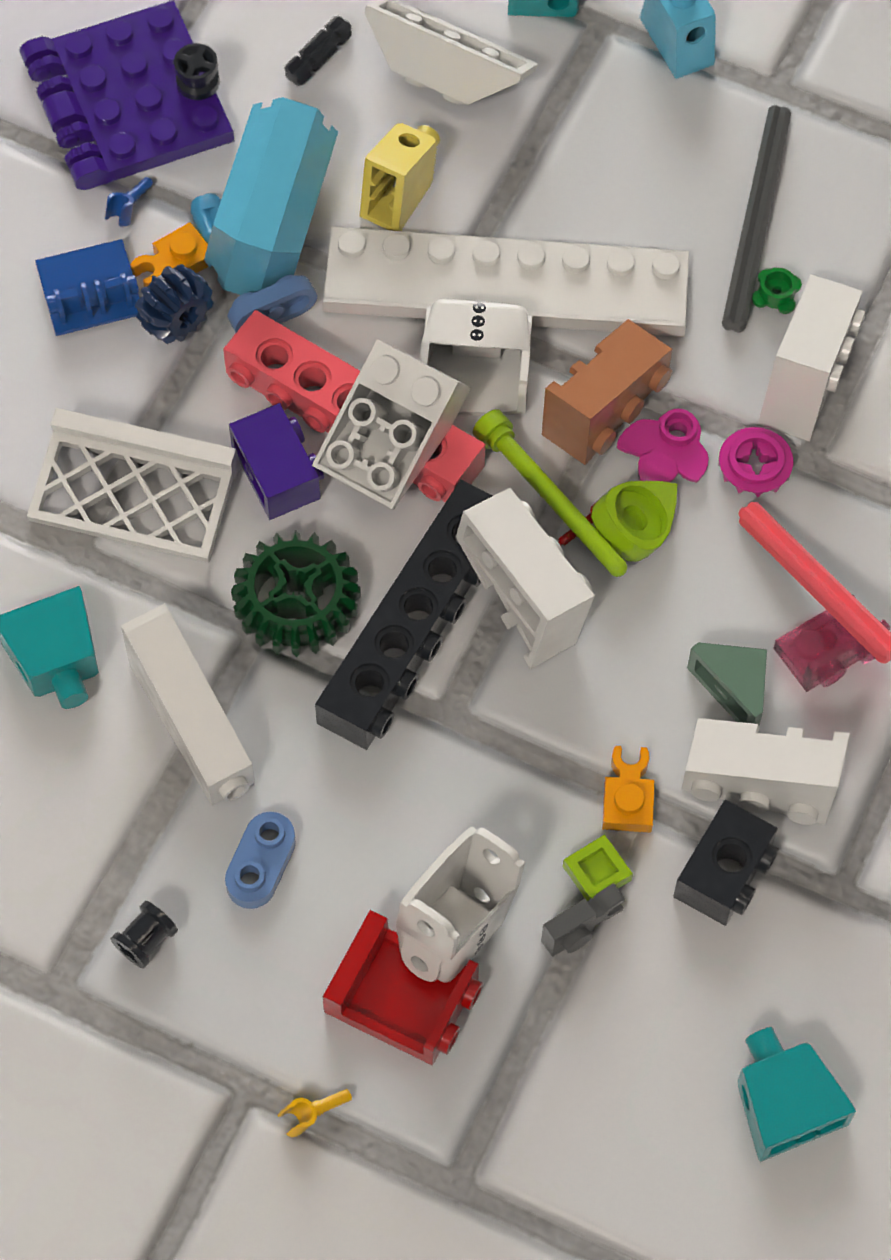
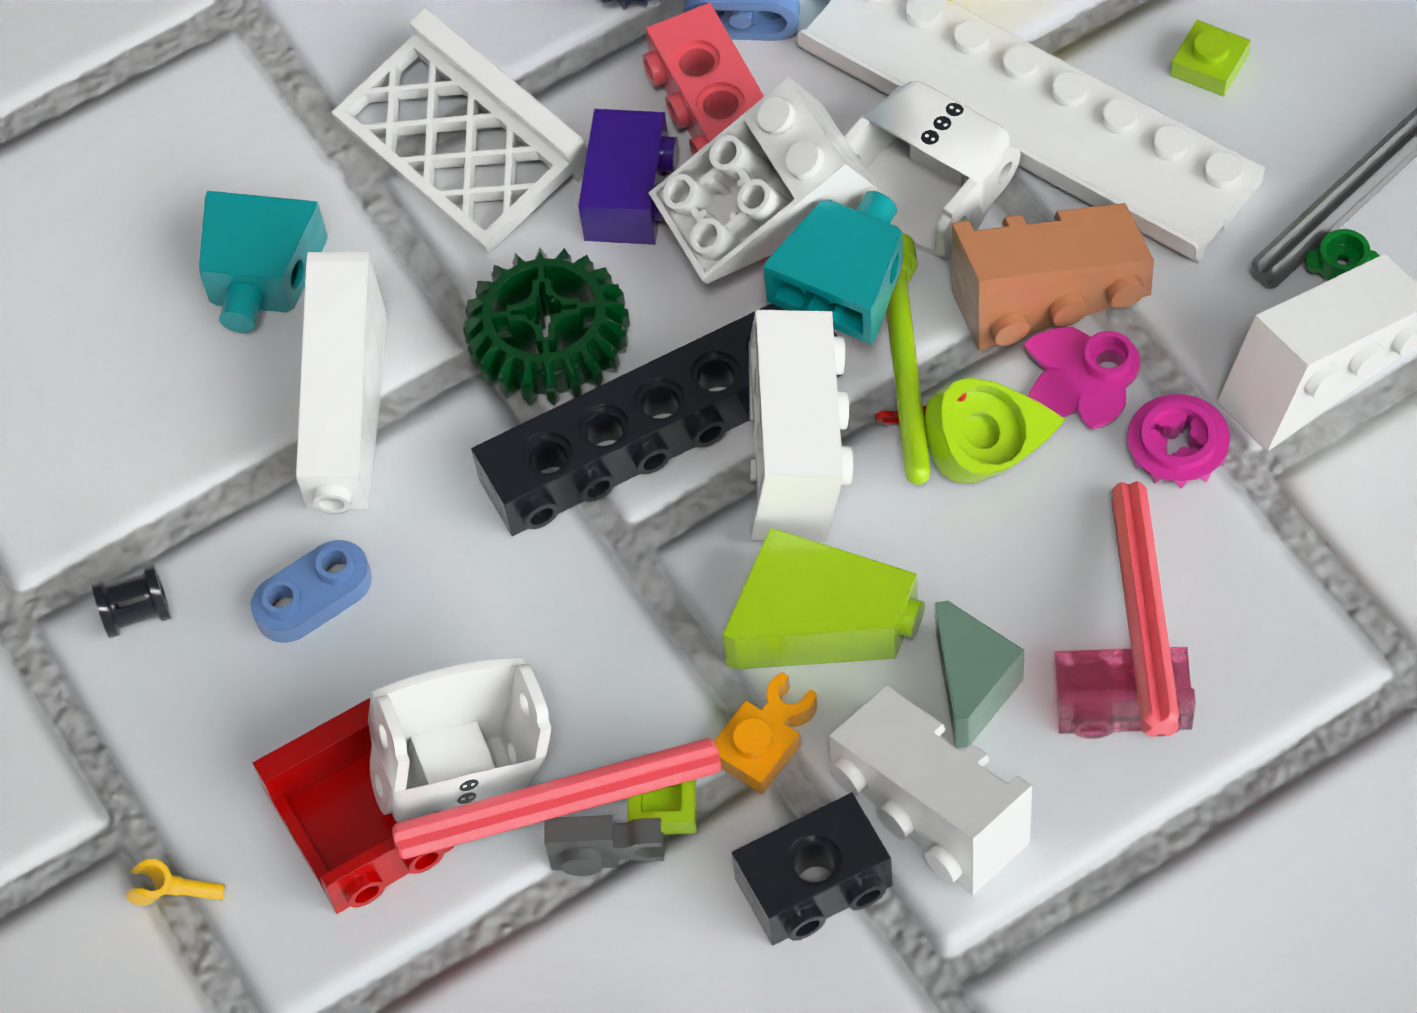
camera: 40 degrees right, 5 degrees down
(485, 452) = (840, 264): none -> teal torso
(541, 908) = (556, 798): none -> coral axle
(601, 191) = (1210, 58): none -> lime plate
(611, 688) = (819, 607): none -> lime slope

